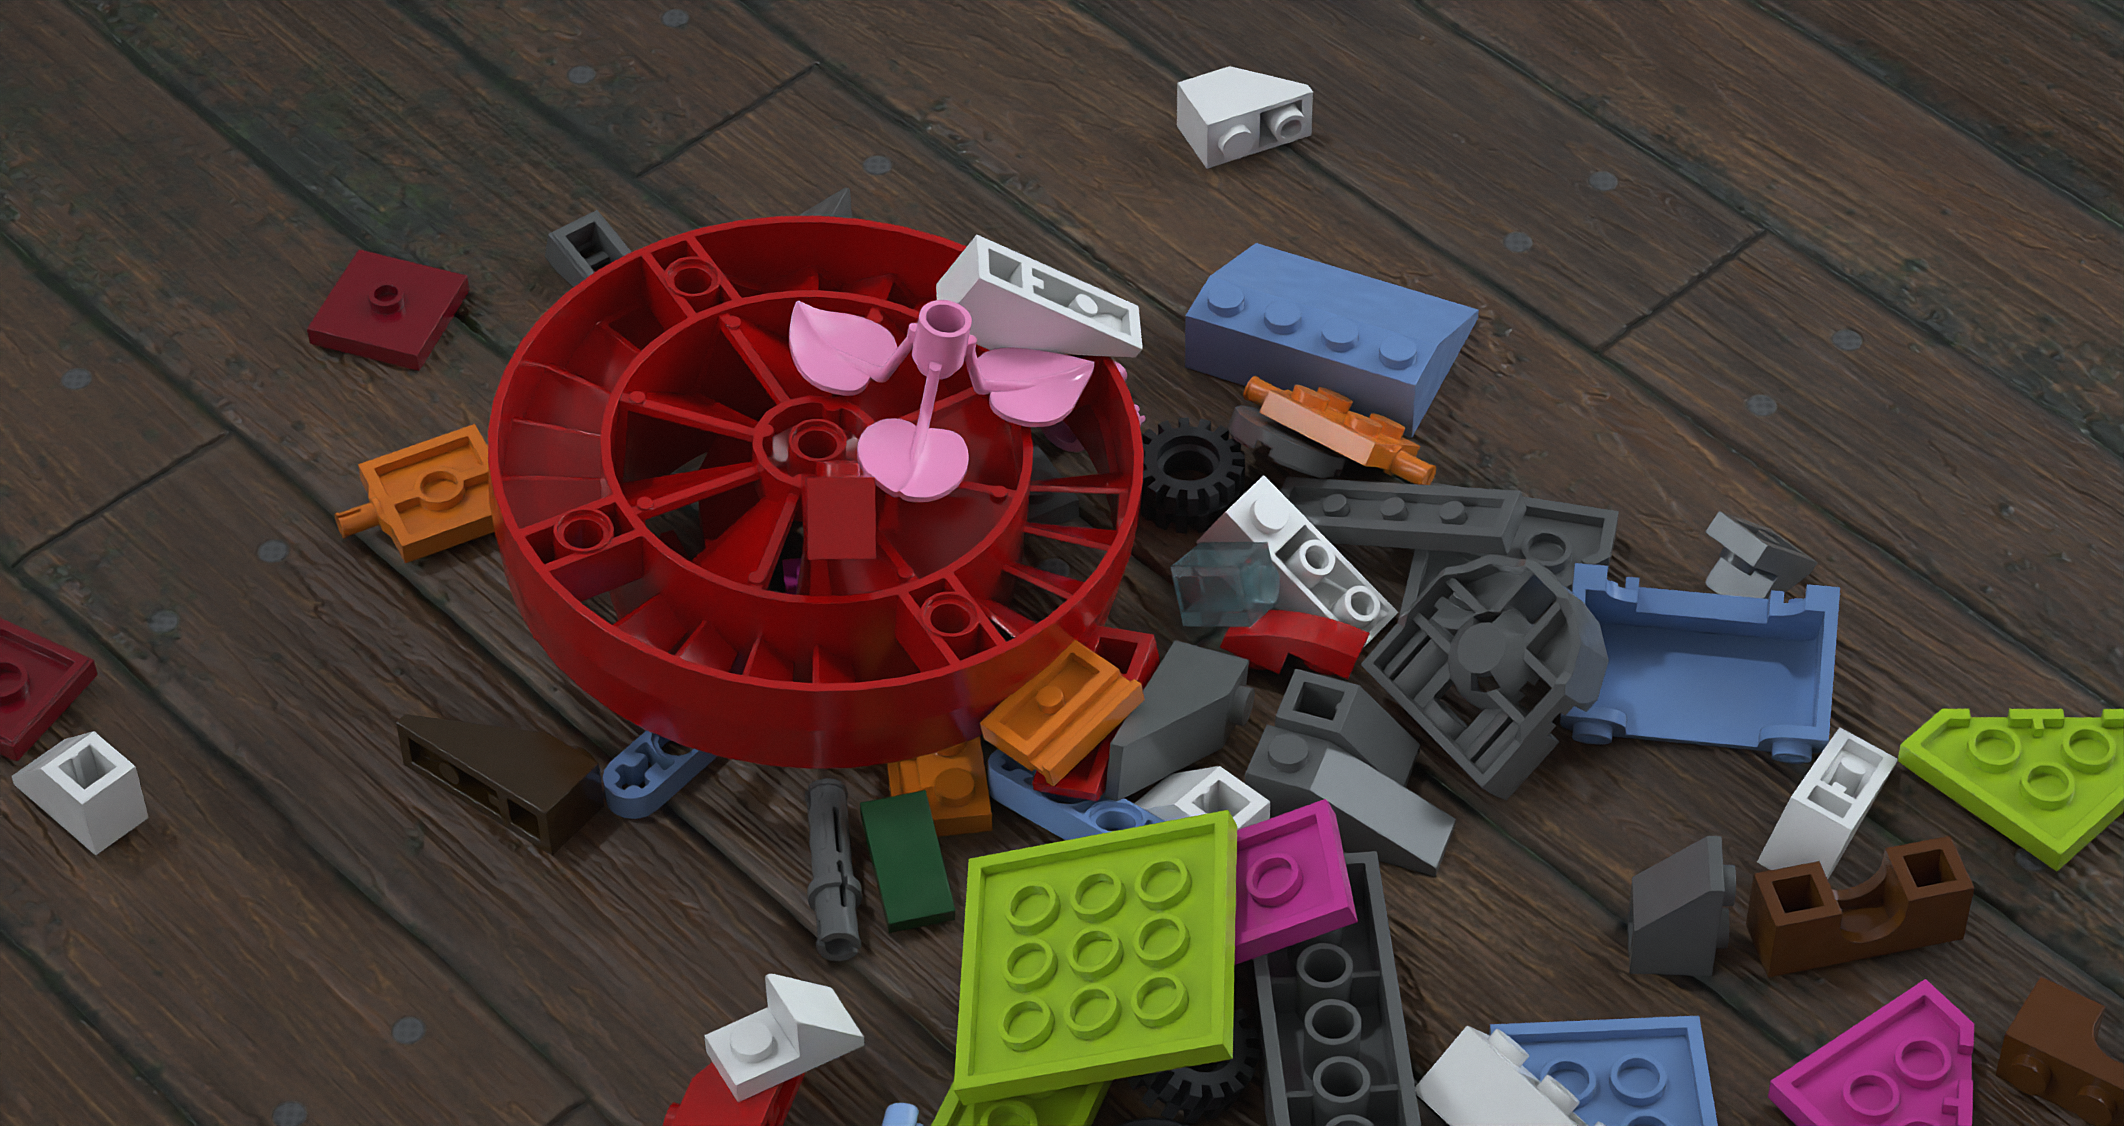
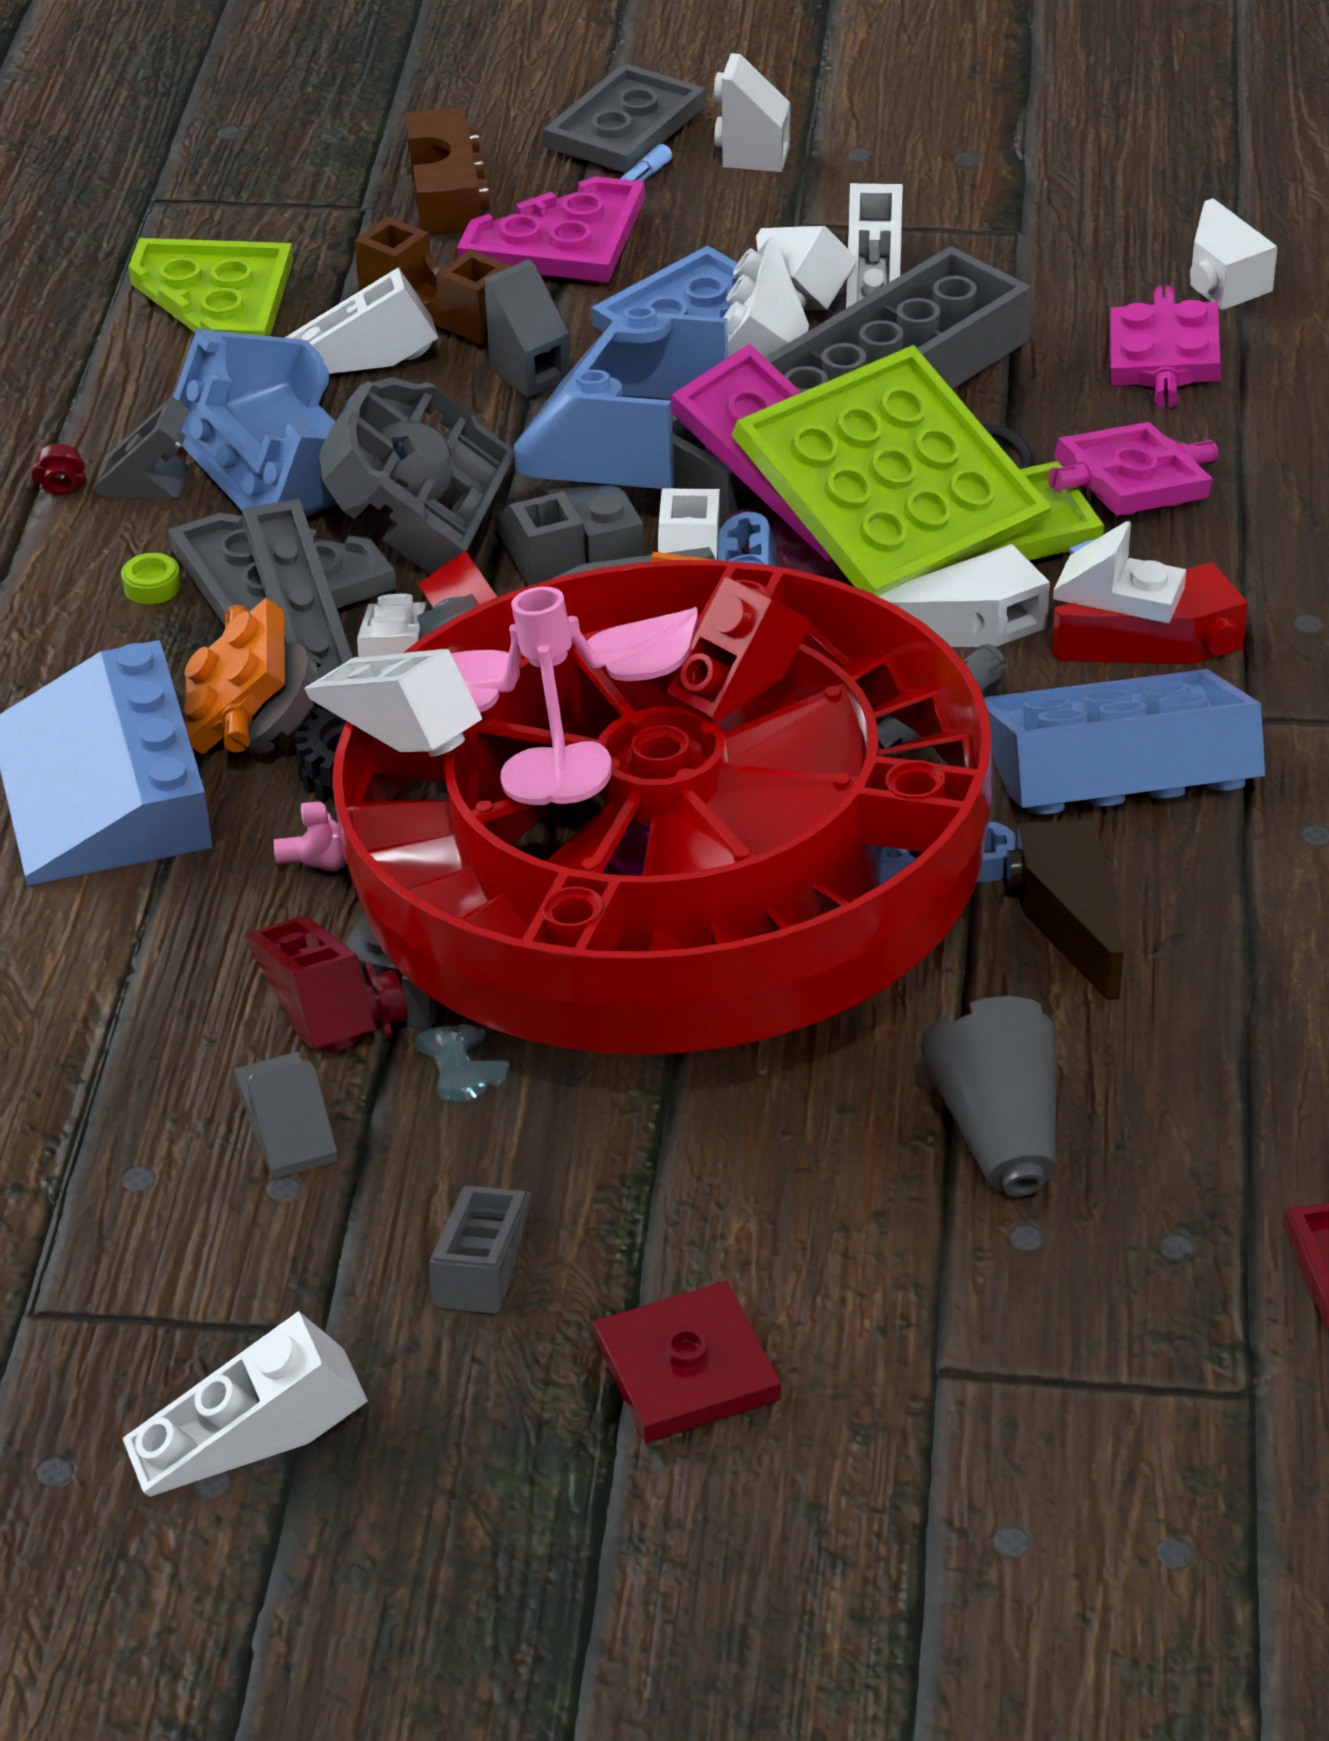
camera: 130 degrees left, 5 degrees down
(378, 574) = (1000, 1087): none -> dark grey cone
(426, 495) = (857, 1146): orange plate -> none
(591, 92) = (251, 1408): none -> white slope
(651, 955) = (1125, 739): none -> medium blue slope
(915, 987) = (979, 599): none -> white slope
(1542, 919) = (616, 440): none -> medium blue windscreen
(1583, 487) = (151, 578): none -> lime tile
(1807, 505) = (59, 469): none -> dark red plate

